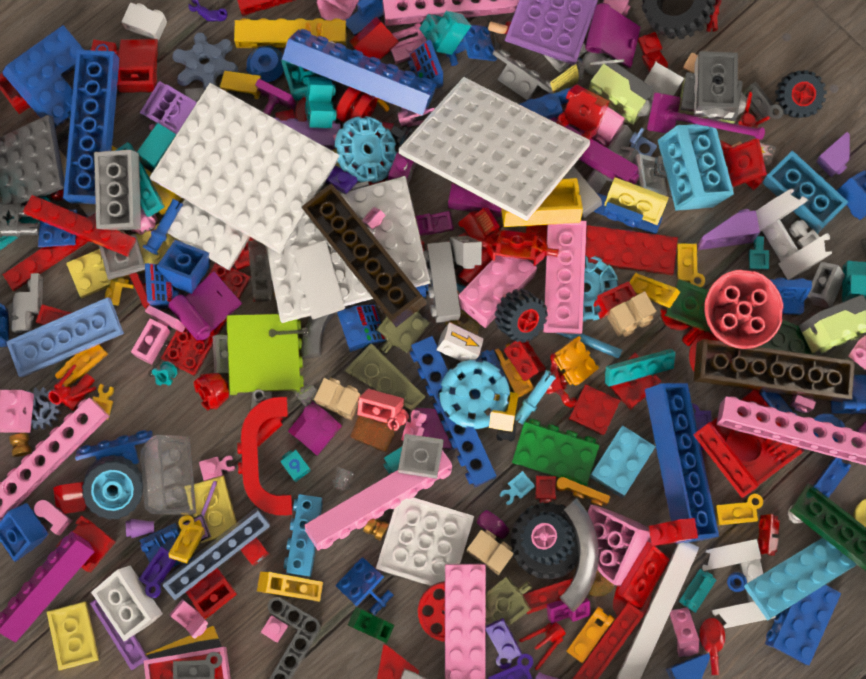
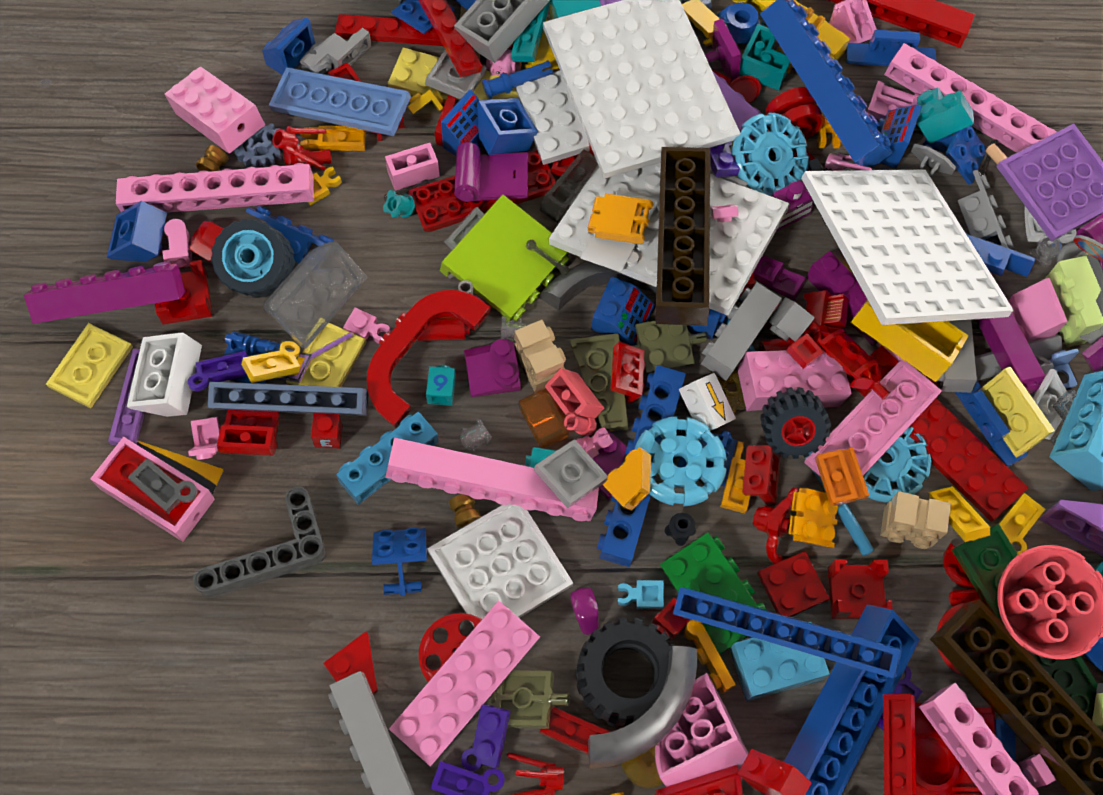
camera: 35 degrees right, 10 degrees down
(139, 527) = (242, 319): medium lavender cone -> none
(165, 319) = (444, 157): bright pink plate -> none
(212, 390) = (427, 252): red cone -> none
(274, 629) = (276, 522): bright pink plate -> none
(289, 586) = (329, 493): yellow slope -> none
(314, 274) = (619, 217): none -> light orange plate
(318, 102) = (759, 85): teal brick -> none
(371, 625) = (370, 598): dark green brick -> none
(374, 40) = (867, 77): red slope -> none
(398, 363) = (628, 371): none -> red bracket
(459, 431) = (631, 480): none -> light orange slope
(463, 66) = (933, 159): none -> light grey piece
(490, 552) = (557, 634): tan brick -> none
(491, 266) = (805, 351): none -> red plate
(504, 420) = (691, 511): panel -> none
(530, 403) = (750, 514): medium azure pin -> none
(547, 538) = (629, 662): black wheel -> none
(559, 610) = (576, 759): magenta slope -> none
(565, 80) = (1032, 245): light yellow sticker -> none
(572, 325) = (841, 476): none -> orange plate
(584, 111) = (1028, 283): red panel -> none
(614, 298) = (909, 484): red hinge -> none
(615, 446) = (788, 632): none -> blue brick
(639, 367) = (880, 579): teal plate -> none

